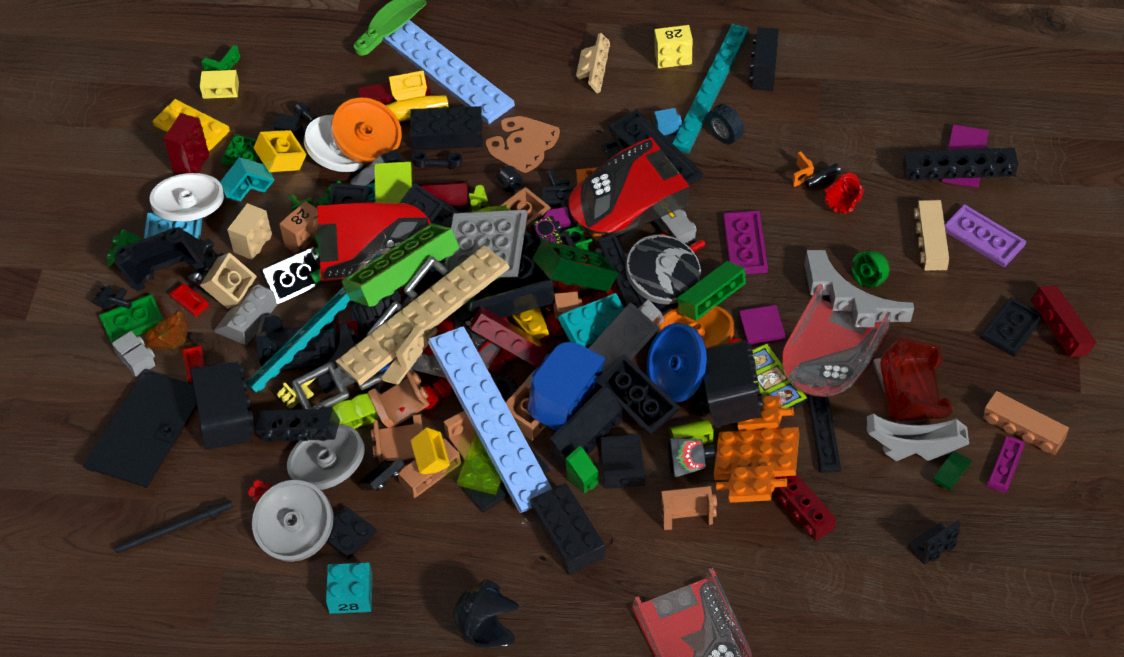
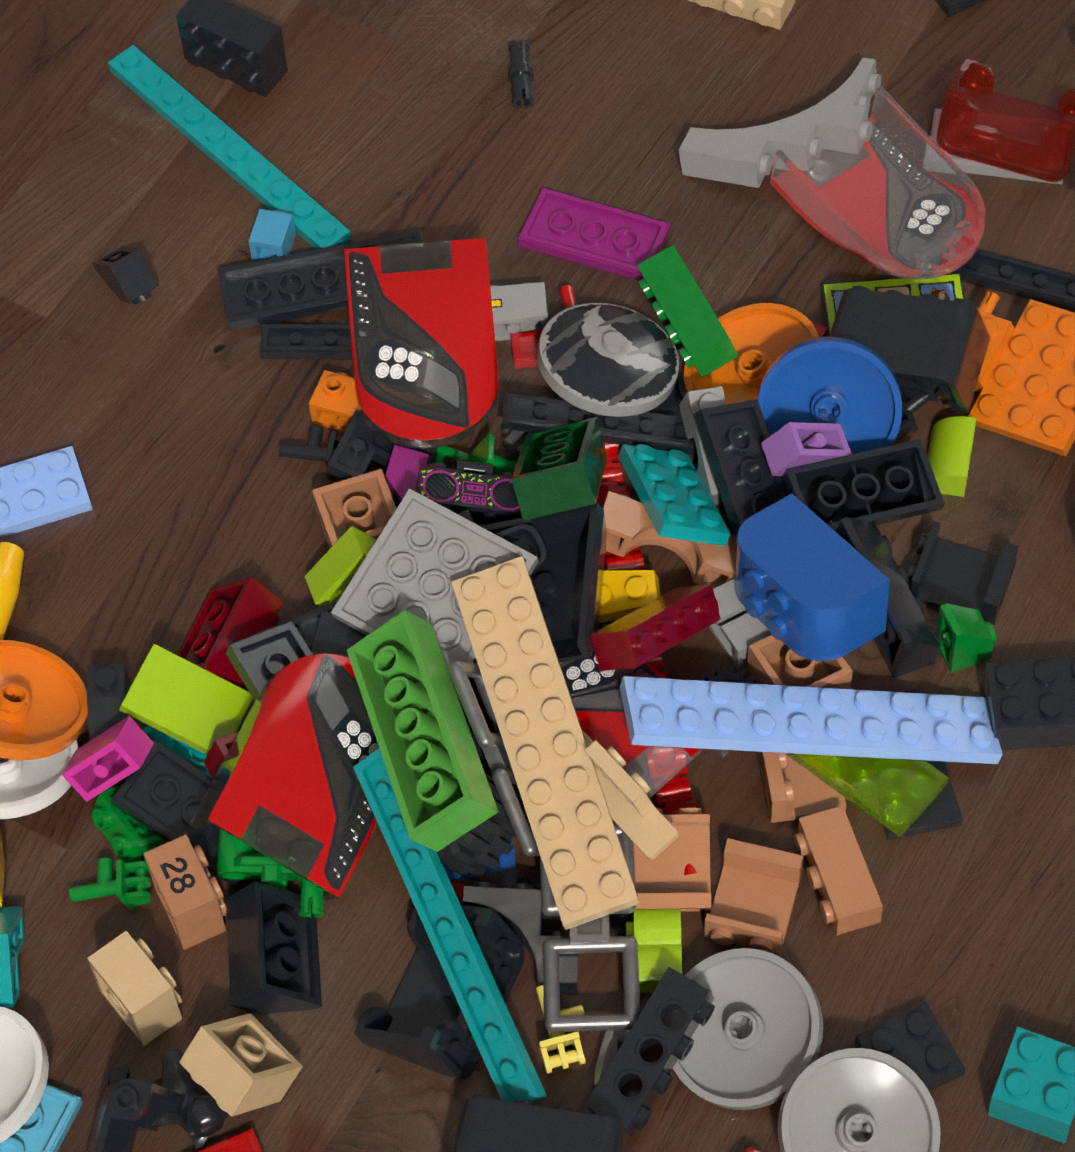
camera: 65 degrees left, 5 degrees up
(244, 319) = (336, 1074): light grey slope -> none
(351, 173) = (108, 758): none -> dark pink brick
(376, 478) = (827, 946): black plate -> none
(420, 160) = (158, 592): black bar -> none
(430, 451) = (828, 847): yellow brick -> none
(446, 128) = (73, 573): black brick -> none
(478, 198) = (278, 581): lime arm -> none
(509, 179) = (254, 518): black head -> none
(532, 144) = (188, 461): nougat piece -> none
(593, 63) = (60, 297): tan bracket -> none
(615, 79) = (127, 274): none -> black slope
(643, 358) = (804, 444): none -> medium lavender brick
(673, 46) = (117, 158): light yellow brick -> none
(687, 455) = (1005, 475): black torso -> none
(725, 124) = (343, 152): black wheel -> none
(762, 324) = (778, 276): magenta tile -> none
(806, 168) = (489, 88): orange bracket -> none
(844, 193) = (585, 57): red hair -> none
(870, 268) = (757, 87): green cylinder -> none

